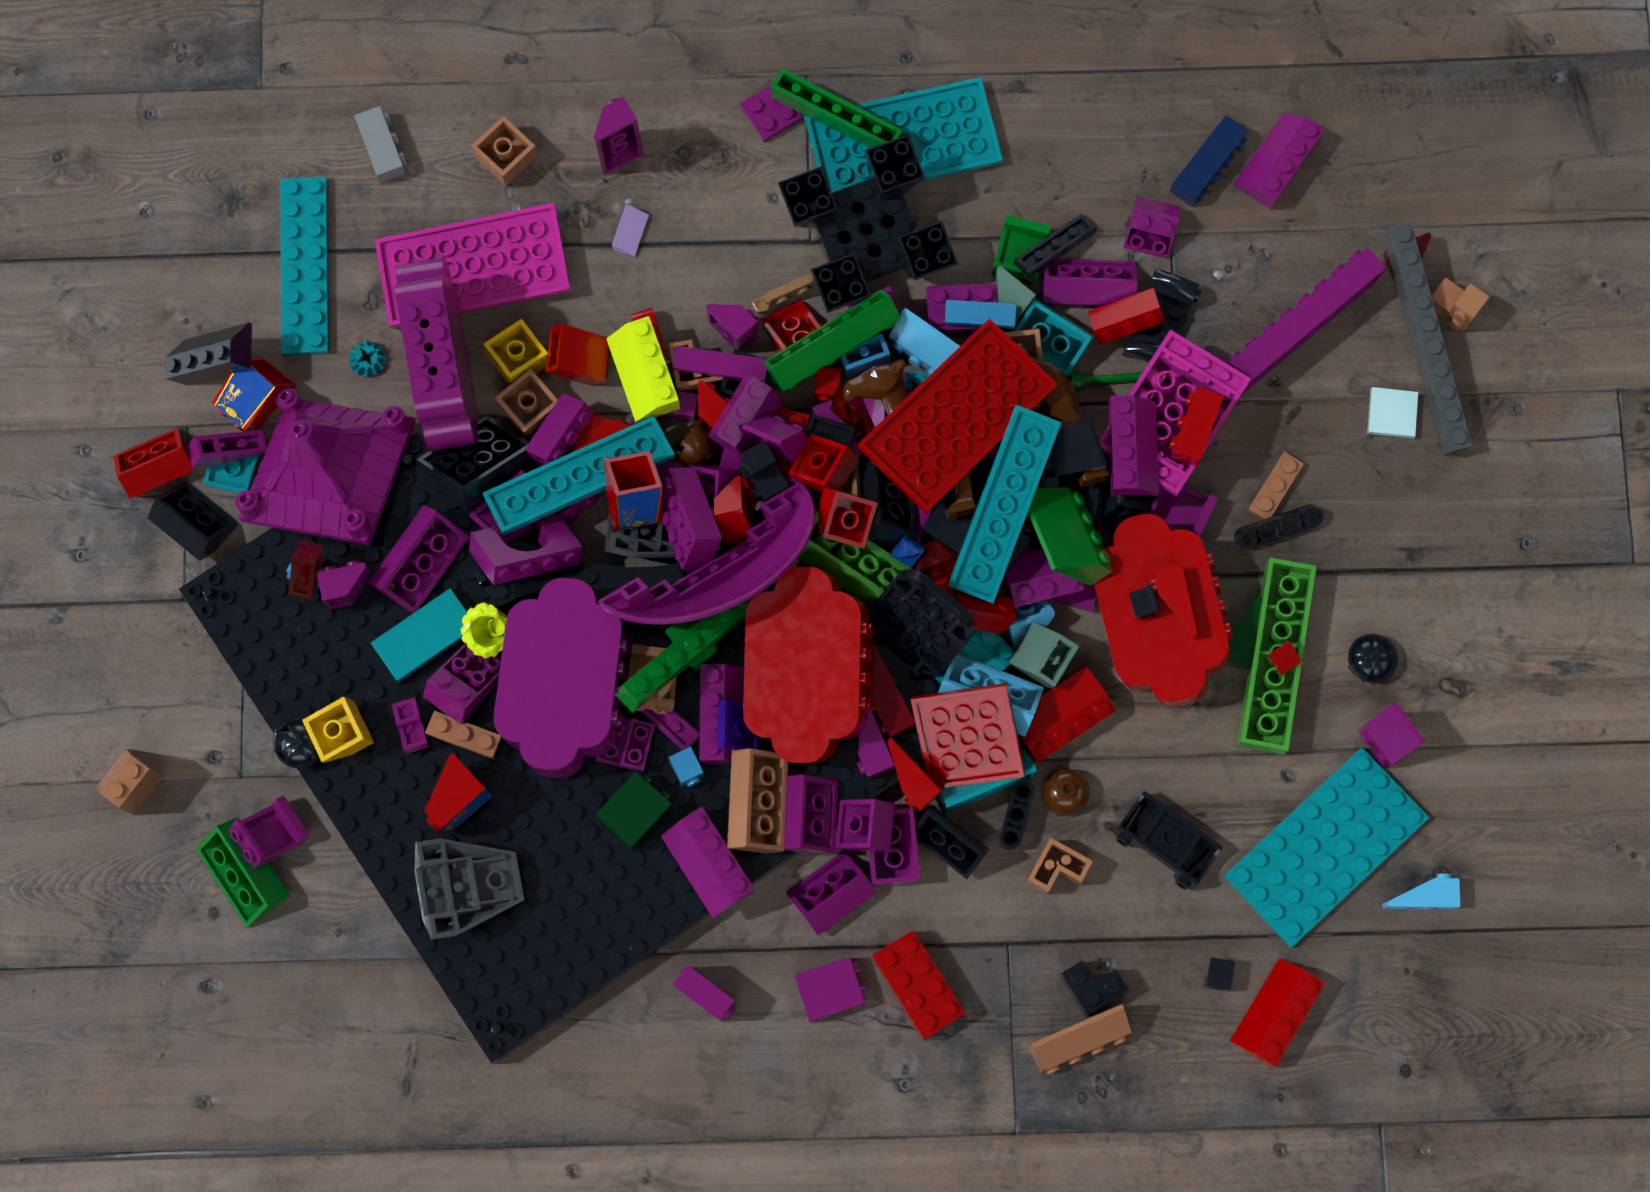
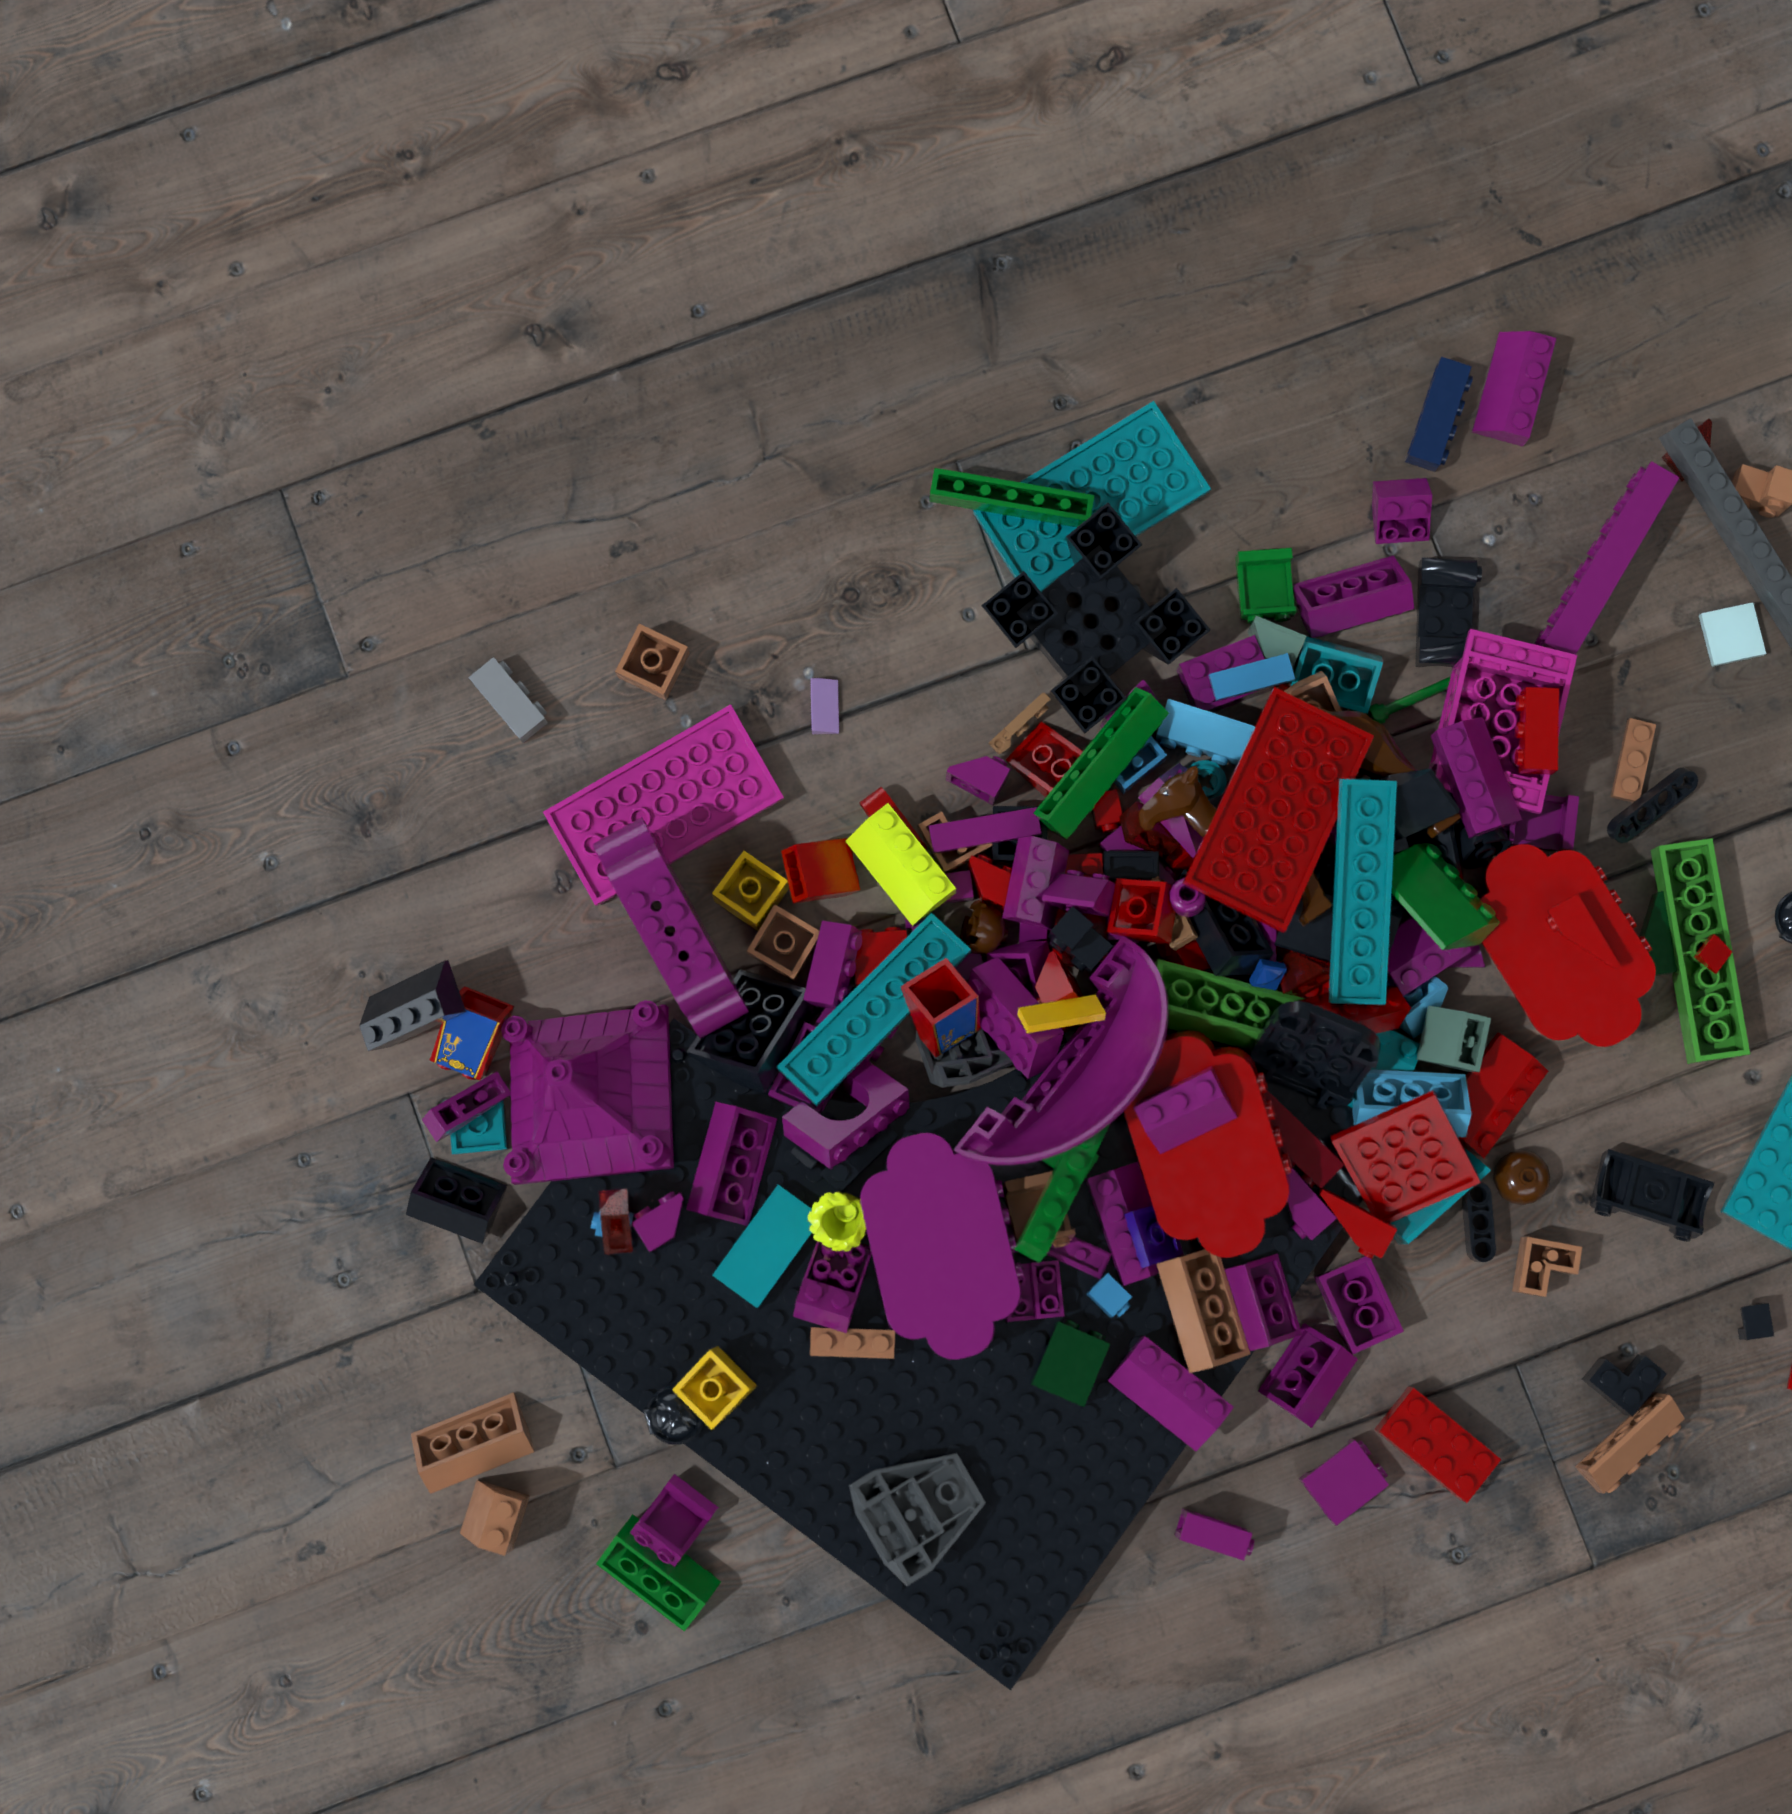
camera: 20 degrees left, 5 degrees up
(131, 717) = (471, 1443): none -> nougat slope
(153, 463) = (388, 1149): red slope -> none
(304, 266) = (473, 867): teal plate -> none
(364, 368) = (584, 962): teal gear -> none
(410, 725) = (789, 1352): magenta slope -> none
(454, 797) = (872, 1417): red slope -> none
(617, 136) = (780, 605): magenta slope -> none
(725, 523) = (1061, 1013): none -> yellow tile
(769, 115) = (930, 521): magenta plate -> none
(793, 627) = (1185, 1110): none -> magenta slope
(845, 517) = (1191, 962): red slope -> none
(860, 467) = (1189, 906): none -> magenta head
(865, 825) = (1325, 1294): magenta slope -> none
(950, 842) = (1421, 1277): black slope -> none
(1055, 246) = (1303, 568): black tile -> none
(1126, 316) = (1410, 624): red brick -> none
(1144, 603) = (1546, 946): black panel -> none

